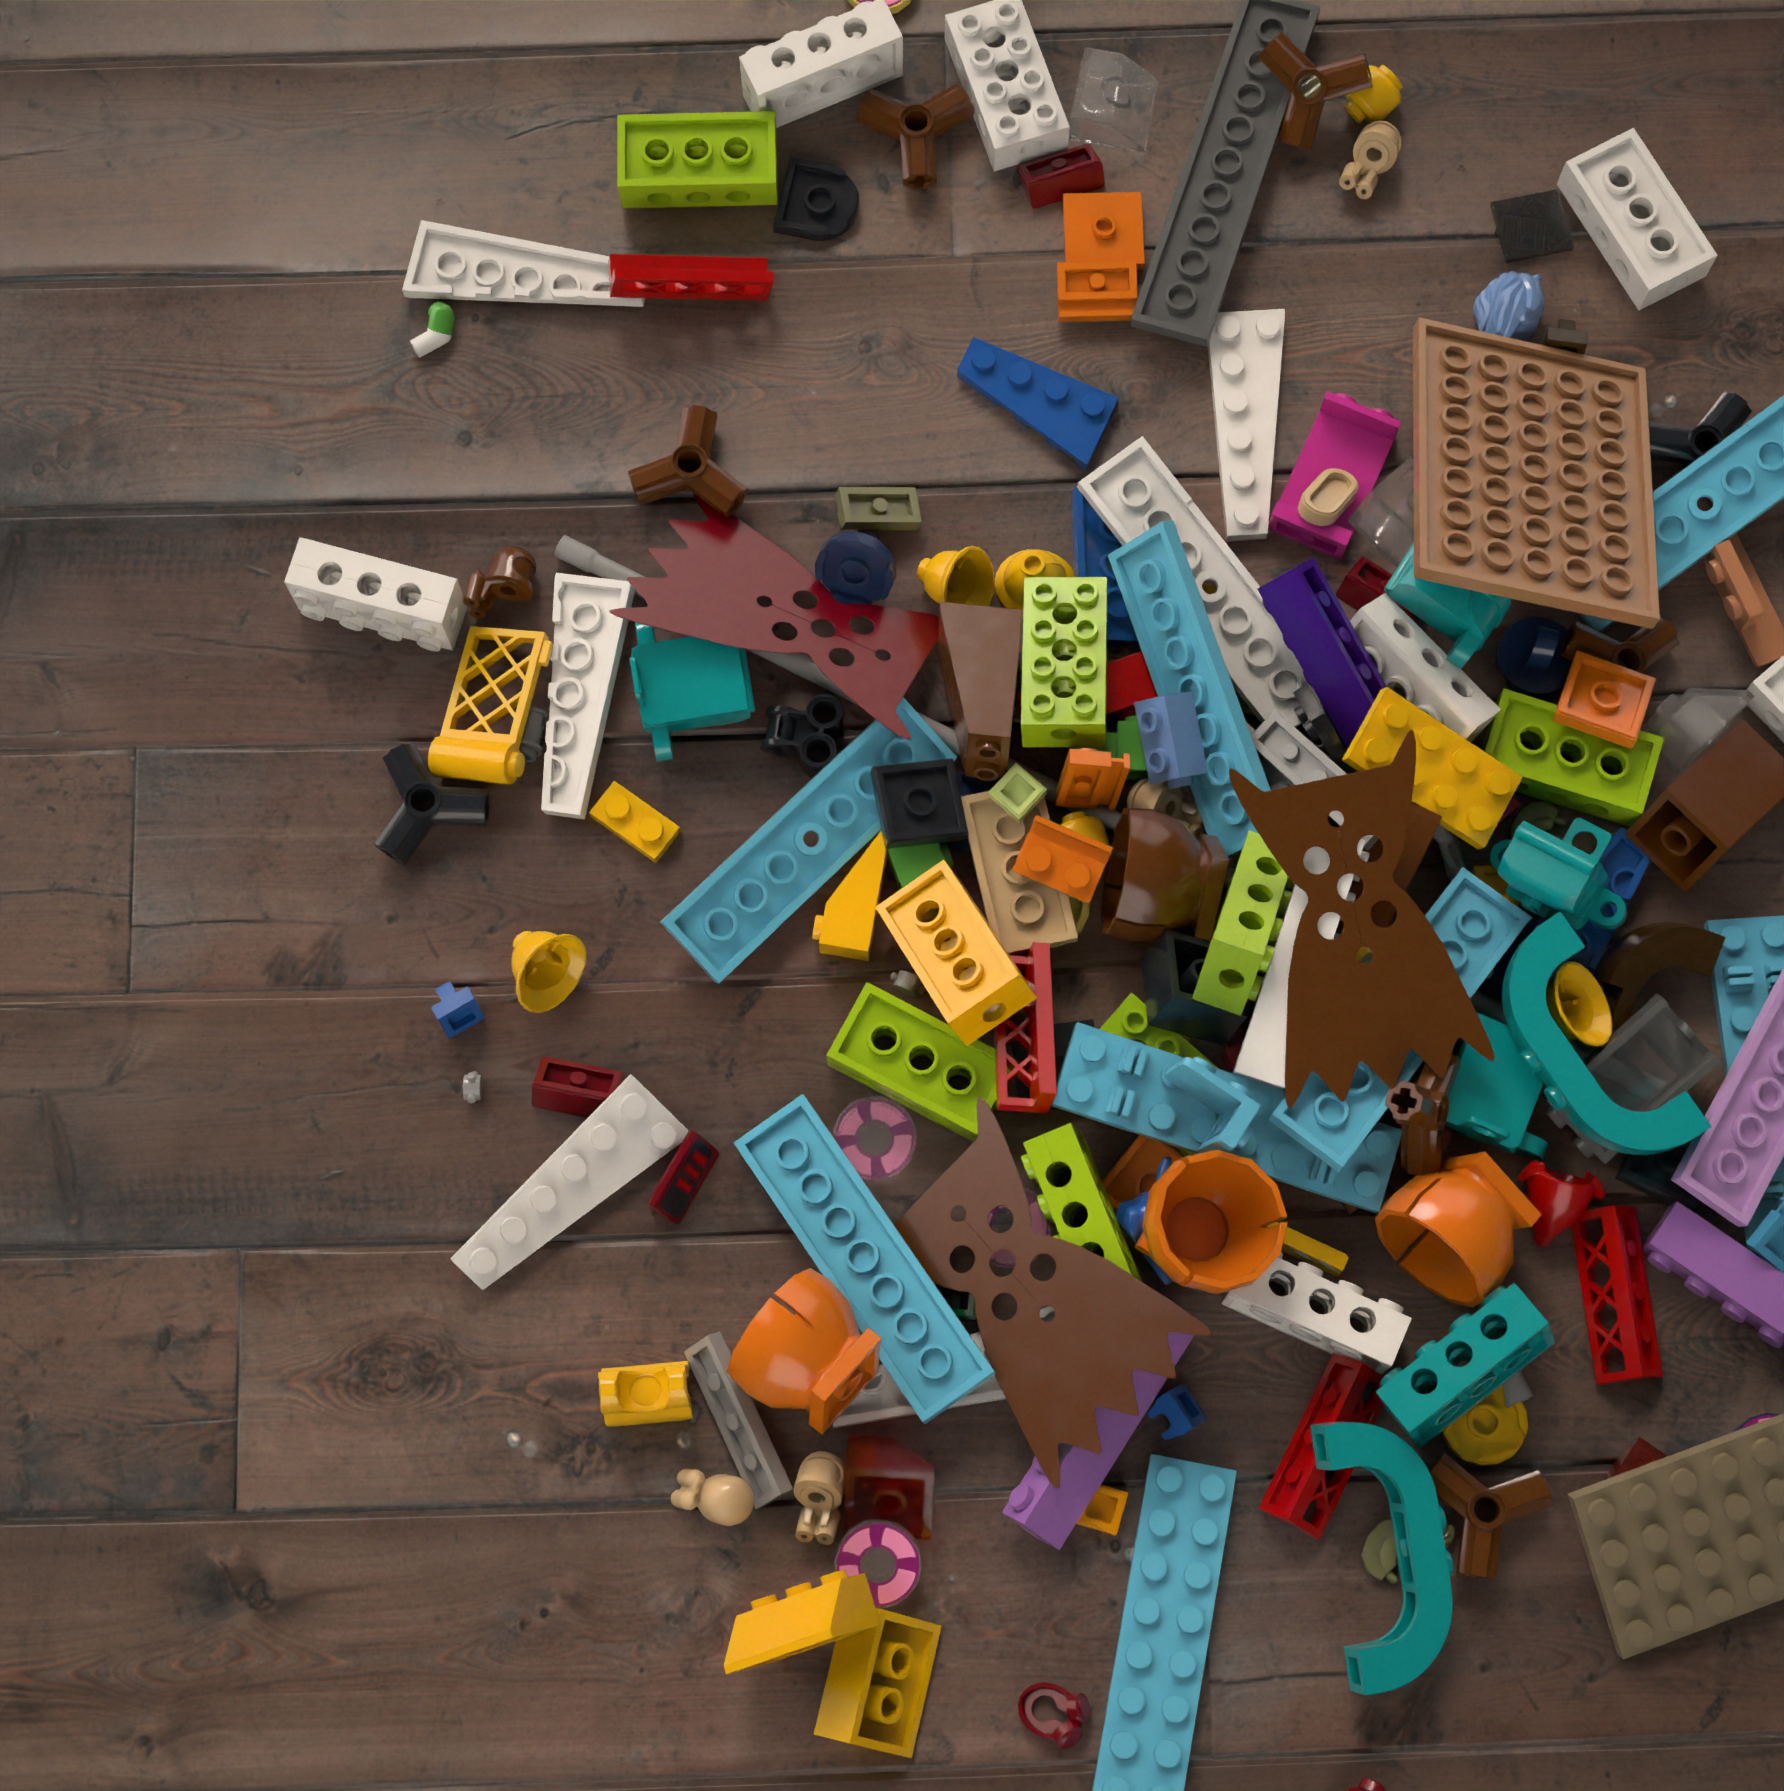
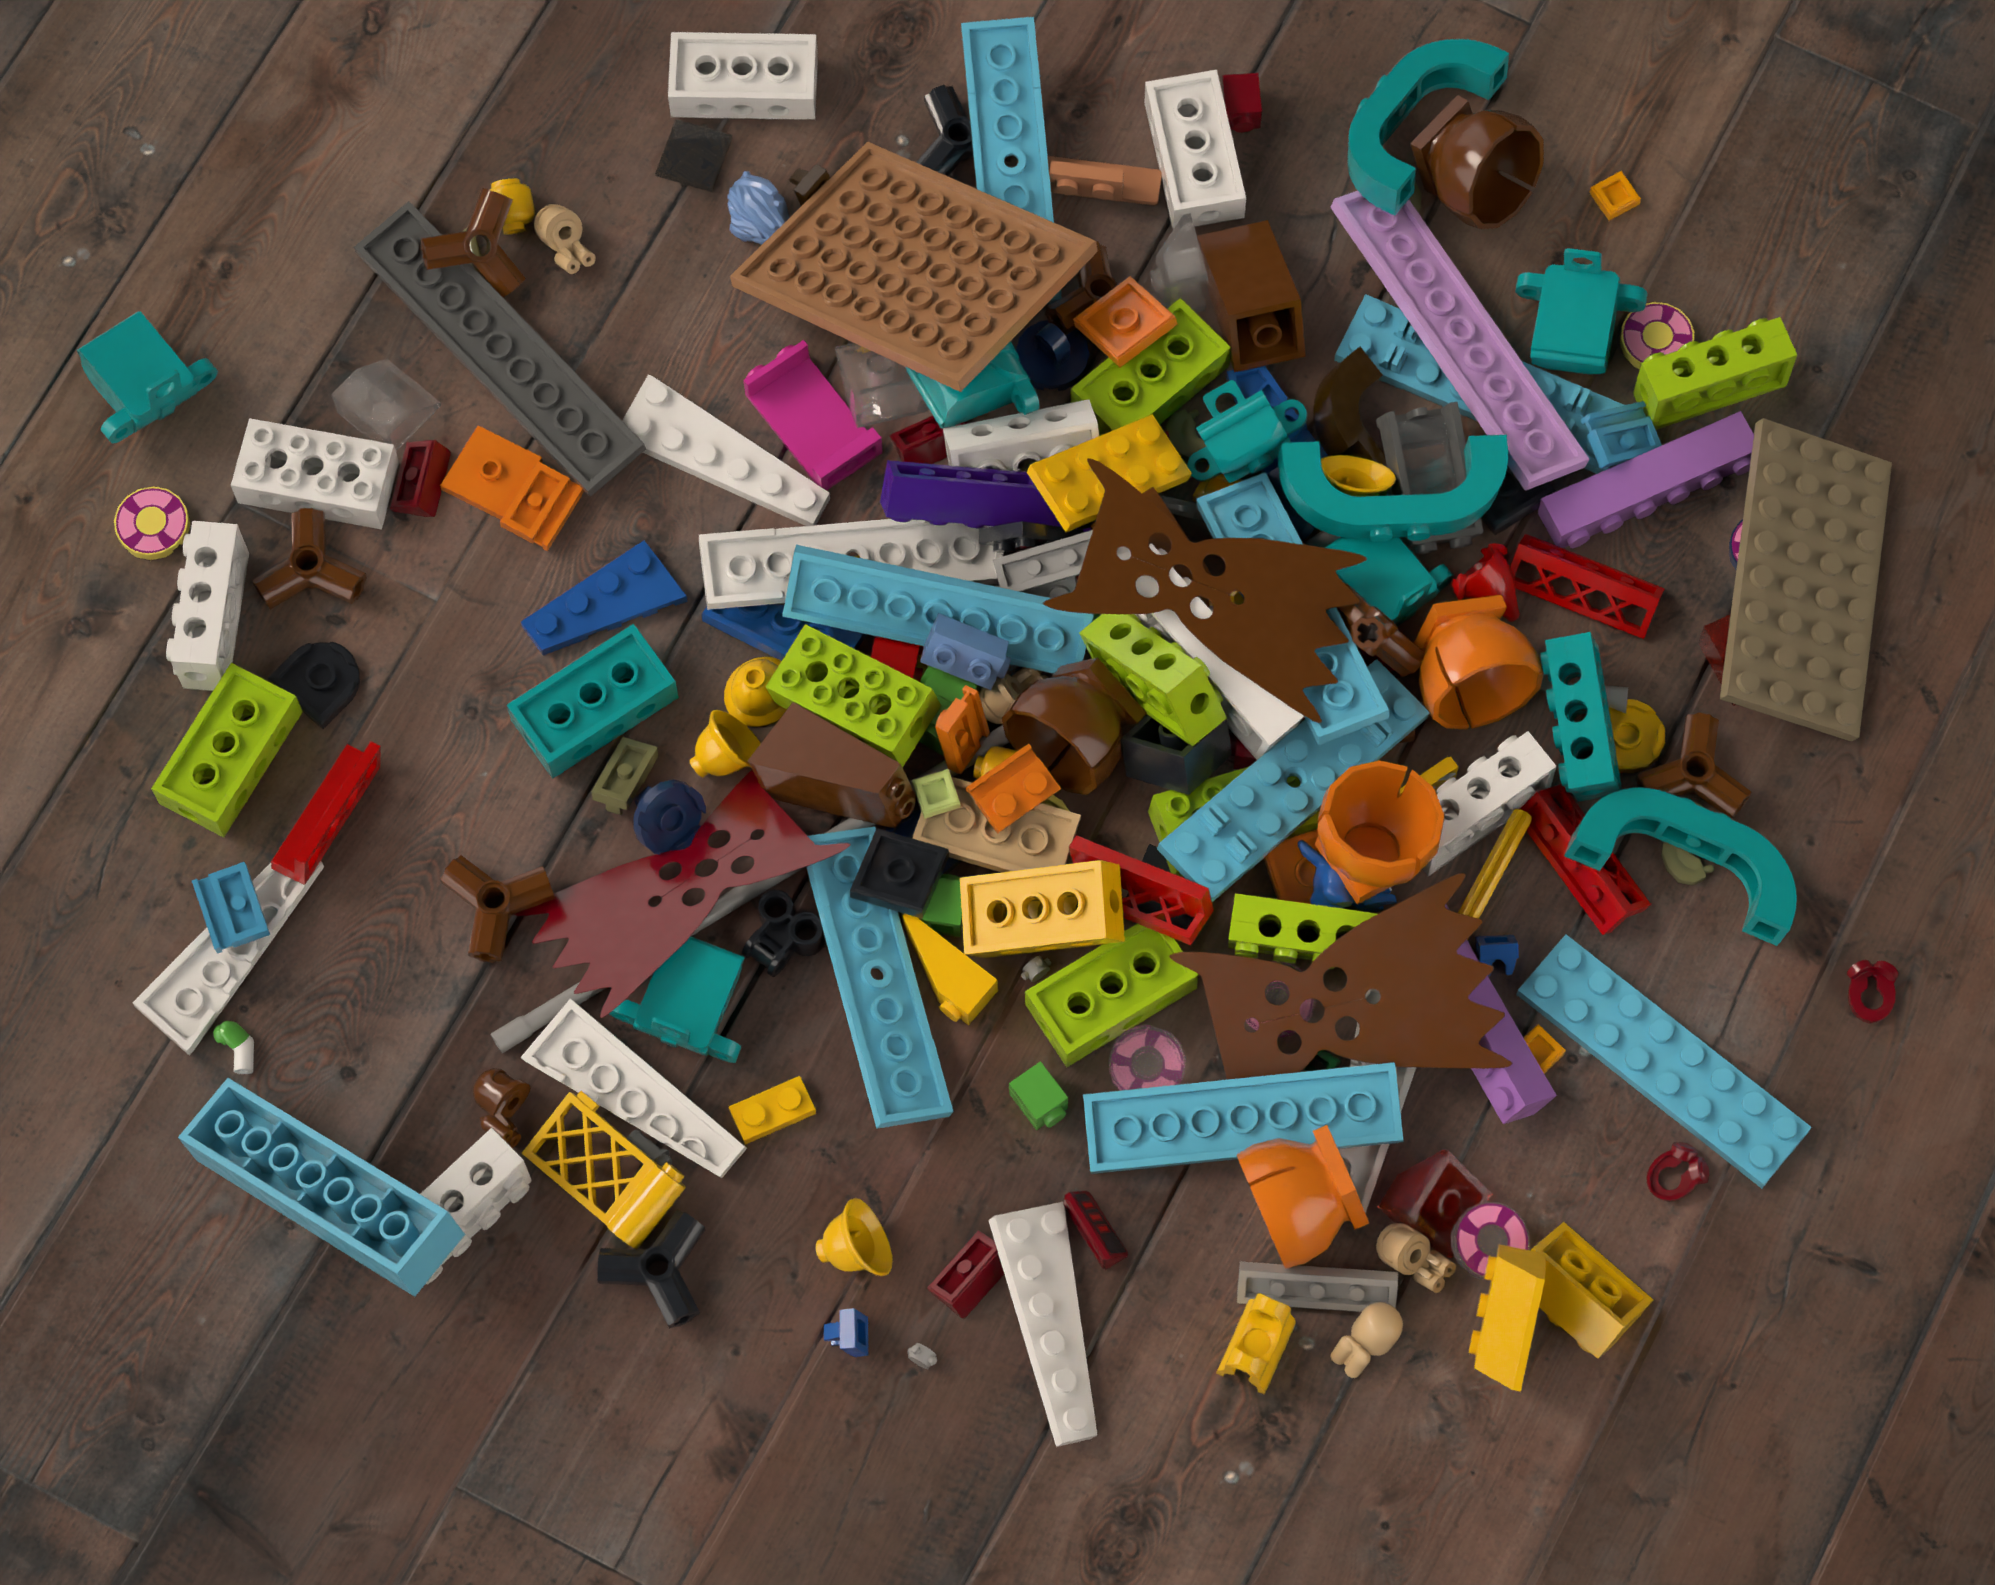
camera: 60 degrees left, 5 degrees down
(318, 467) = (322, 1186): none -> medium azure brick
(550, 247) = (231, 907): none -> dark azure plate
(780, 1055) = (1039, 1097): none -> bright green brick
(924, 416) = (590, 678): none -> teal brick
(1228, 1100) = (1297, 762): medium azure bracket -> none
(1256, 1363) = (1496, 864): none -> yellow axle
(1328, 497) = (831, 429): tan tile -> none

